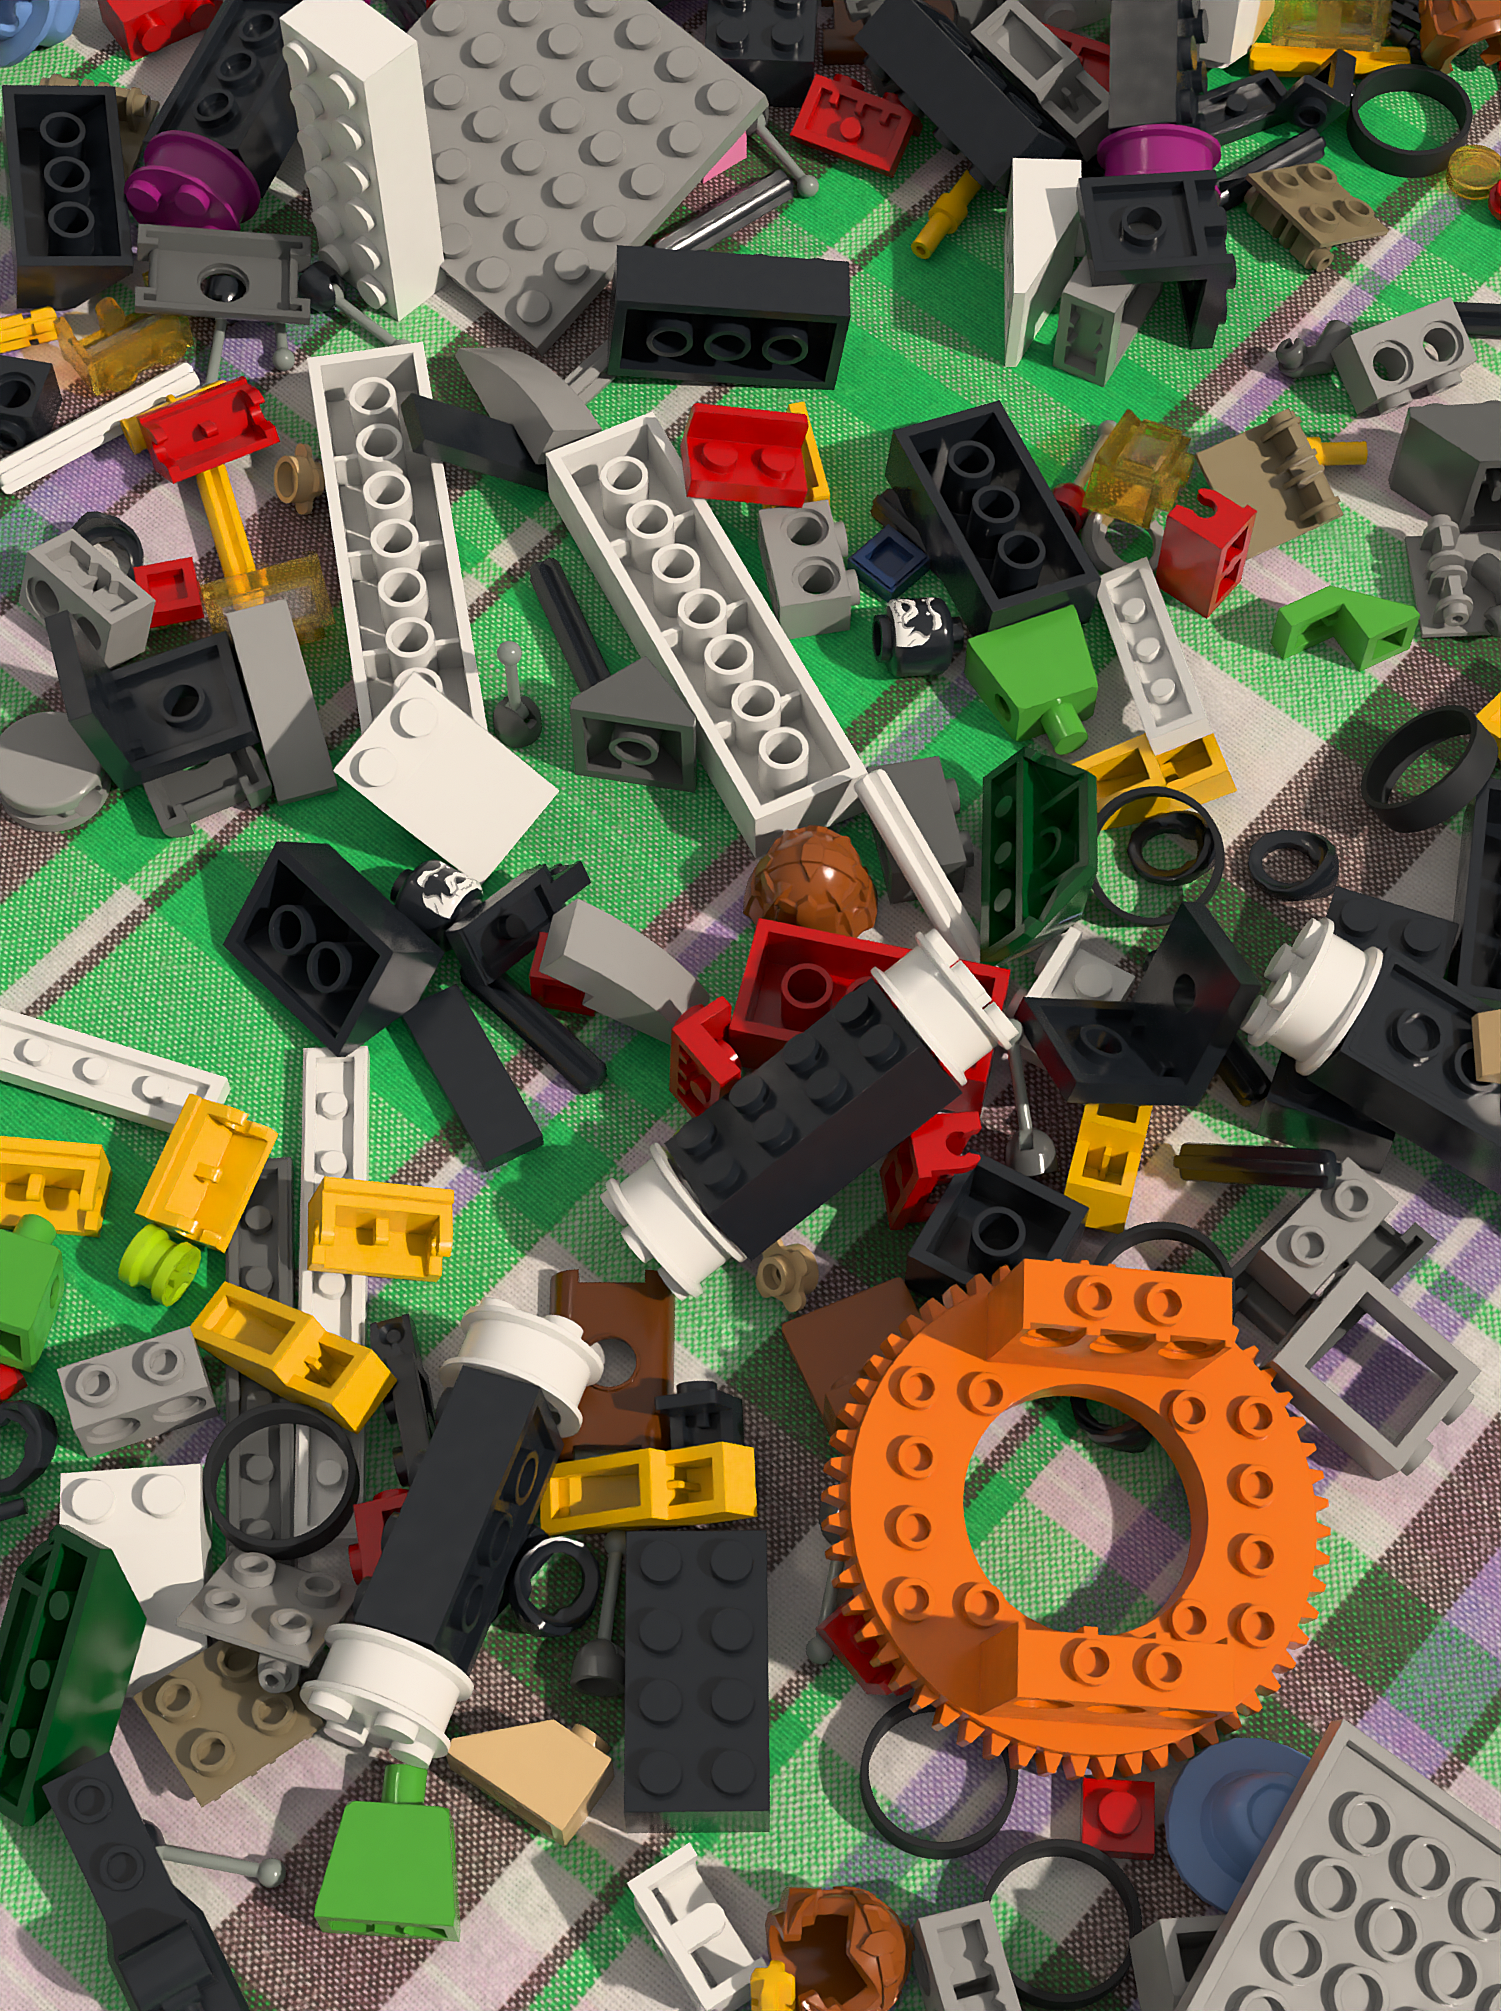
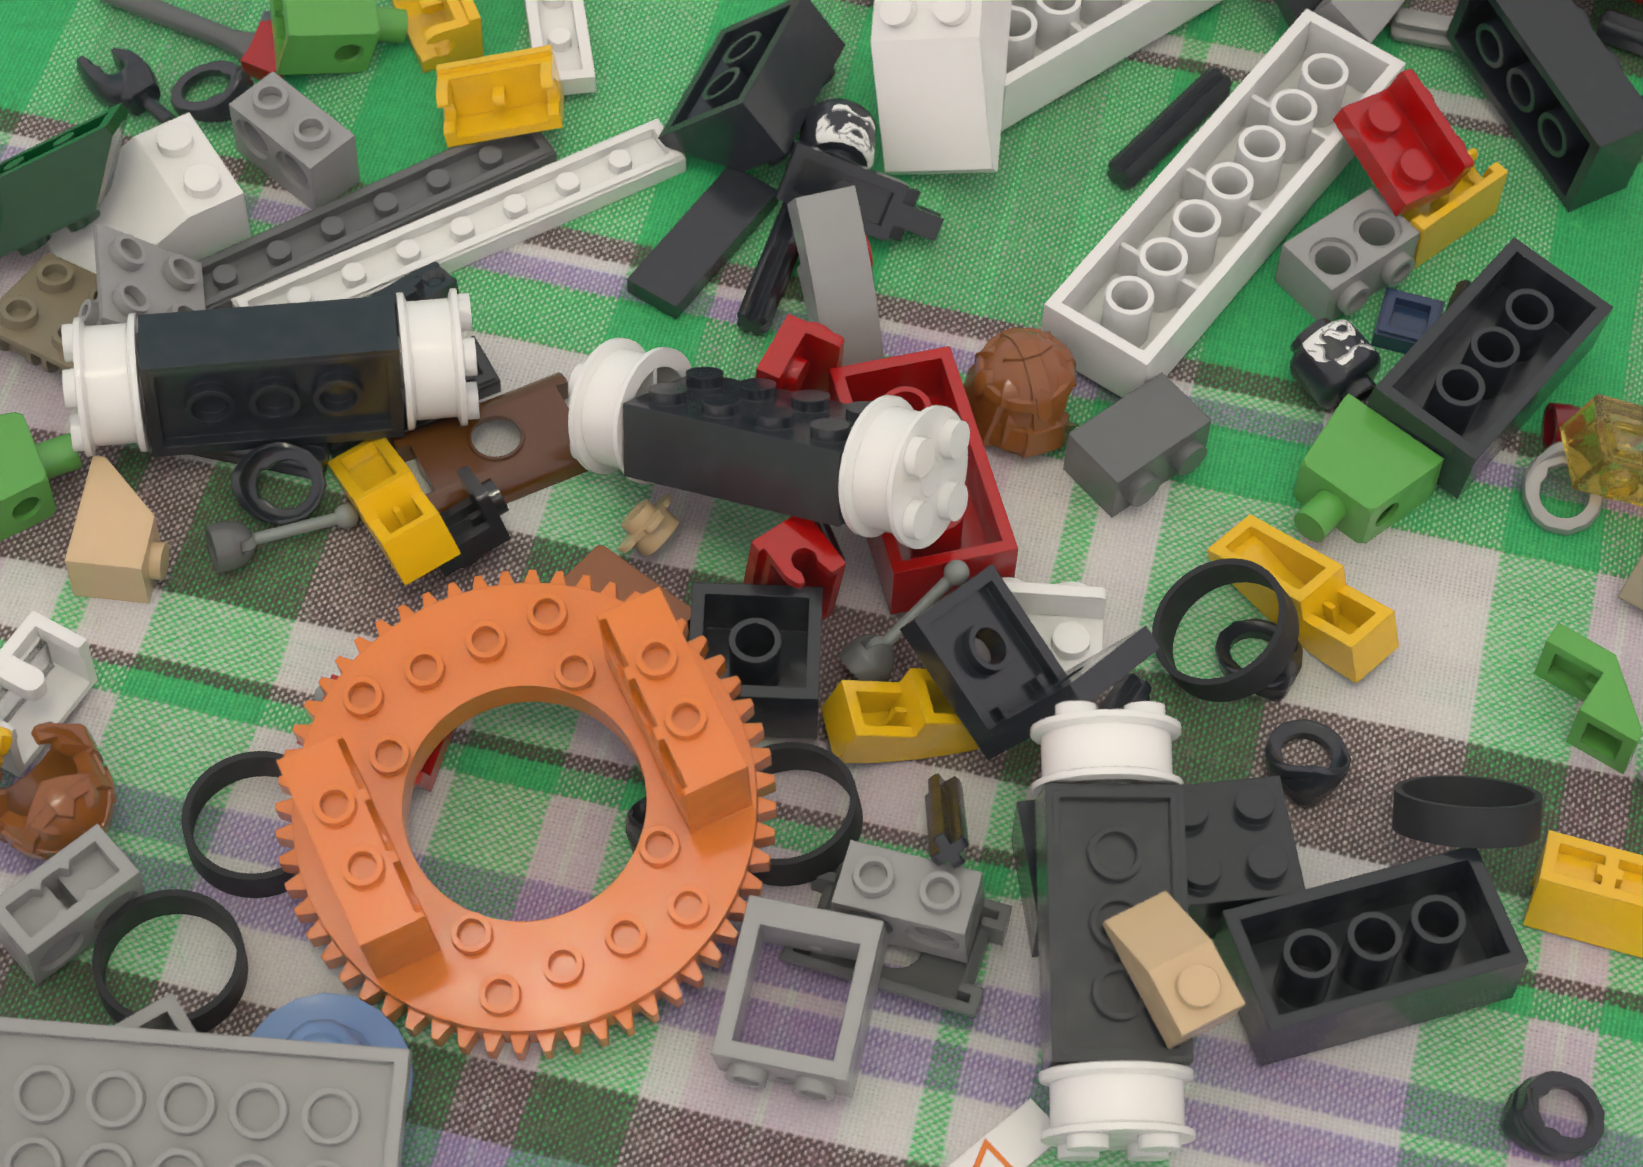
camera: 60 degrees right, 5 degrees down
(159, 1264) = (410, 109): lime wheel -> none
(260, 1418) = (267, 213): black tyre -> none
(293, 1355) = (371, 219): yellow slope -> none
(379, 1229) = (517, 228): yellow hinge -> none
(515, 707) = (1059, 113): hinge -> none
(635, 731) = (1084, 184): dark grey slope -> none
(696, 1682) = (245, 610): black brick -> none
(918, 864) = (1074, 459): white axle -> none
(1035, 853) = (1144, 533): dark green wedge -> none
(1118, 1817) = (285, 971): red plate -> none
(1152, 657) = (1435, 544): white plate -> none
(1204, 556) = (1579, 543): red hinge -> none

